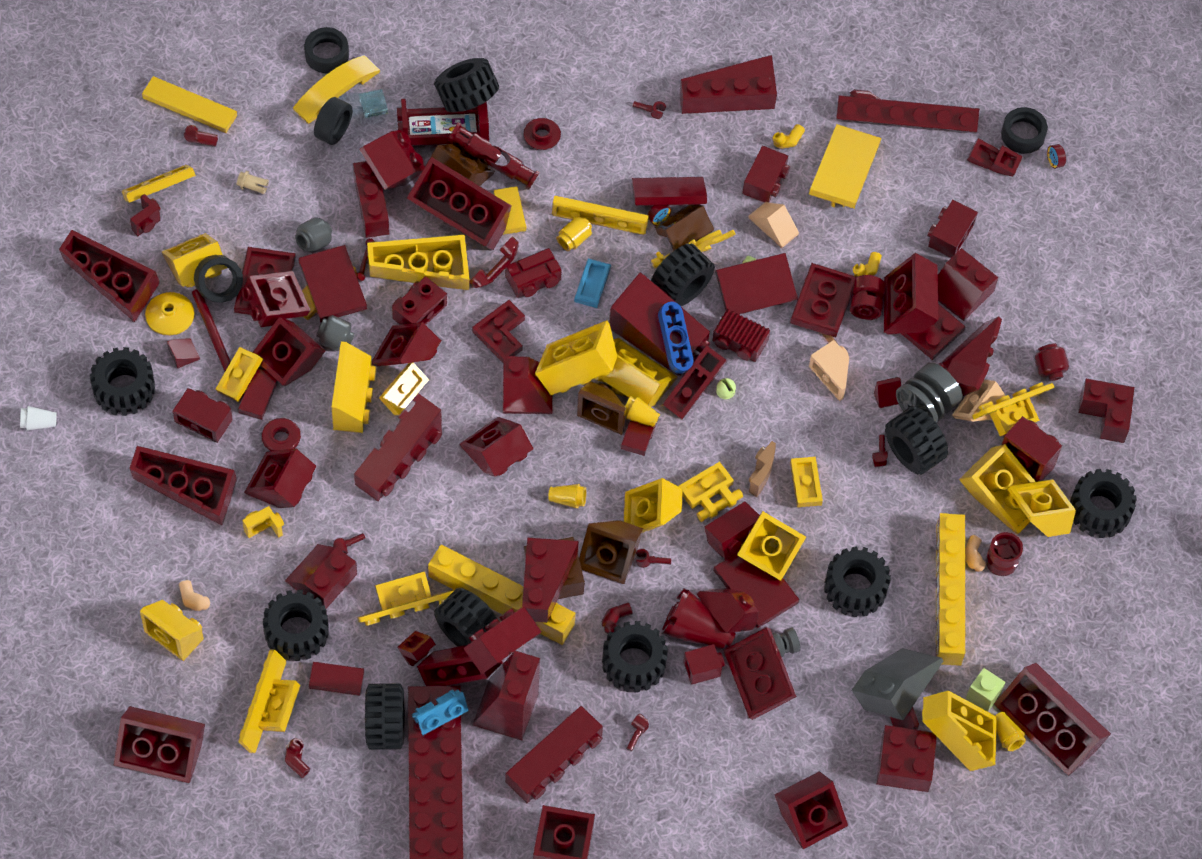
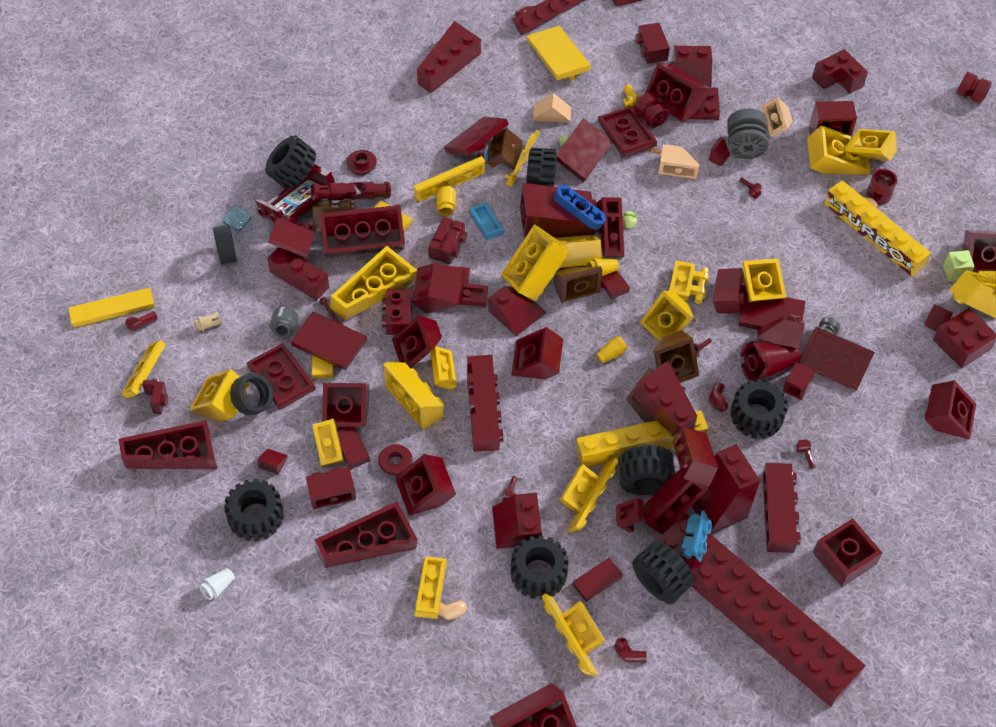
camera: 40 degrees left, 5 degrees down
(169, 322) = (236, 452): yellow dish -> none
(171, 628) = (462, 640): yellow slope -> none
(195, 566) = (430, 587): none -> yellow tile
(212, 329) = (278, 432): dark red bar -> none
(260, 520) = (445, 515): yellow bracket -> none
(275, 297) = (303, 377): dark red plate -> none
(326, 35) = (173, 221): black tyre -> none
(334, 85) = (200, 228): yellow slope -> none
(334, 331) = (363, 369): dark grey head -> none
(472, 310) = (437, 287): none -> dark red slope
(509, 250) = (426, 232): dark red bar -> none
(649, 108) = (416, 101): dark red hand -> none
(740, 336) = (606, 183): dark red brick -> none
(763, 468) = (703, 243): medium nougat slope -> none
(766, 174) = (519, 88): dark red brick -> none
(786, 141) = (509, 63): yellow arm -> none
(806, 482) = (733, 234): yellow plate -> none
(854, 599) = (826, 276): black tyre -> none
(896, 682) = (914, 299): dark grey slope -> none
(916, 440) = (771, 161): black tyre -> none
(968, 361) = (743, 94): dark red wedge -> none
(1009, 411) = (798, 110): yellow bracket -> none
(1051, 362) = (783, 71): dark red head -> none
(1108, 486) = (898, 116): black tyre -> none

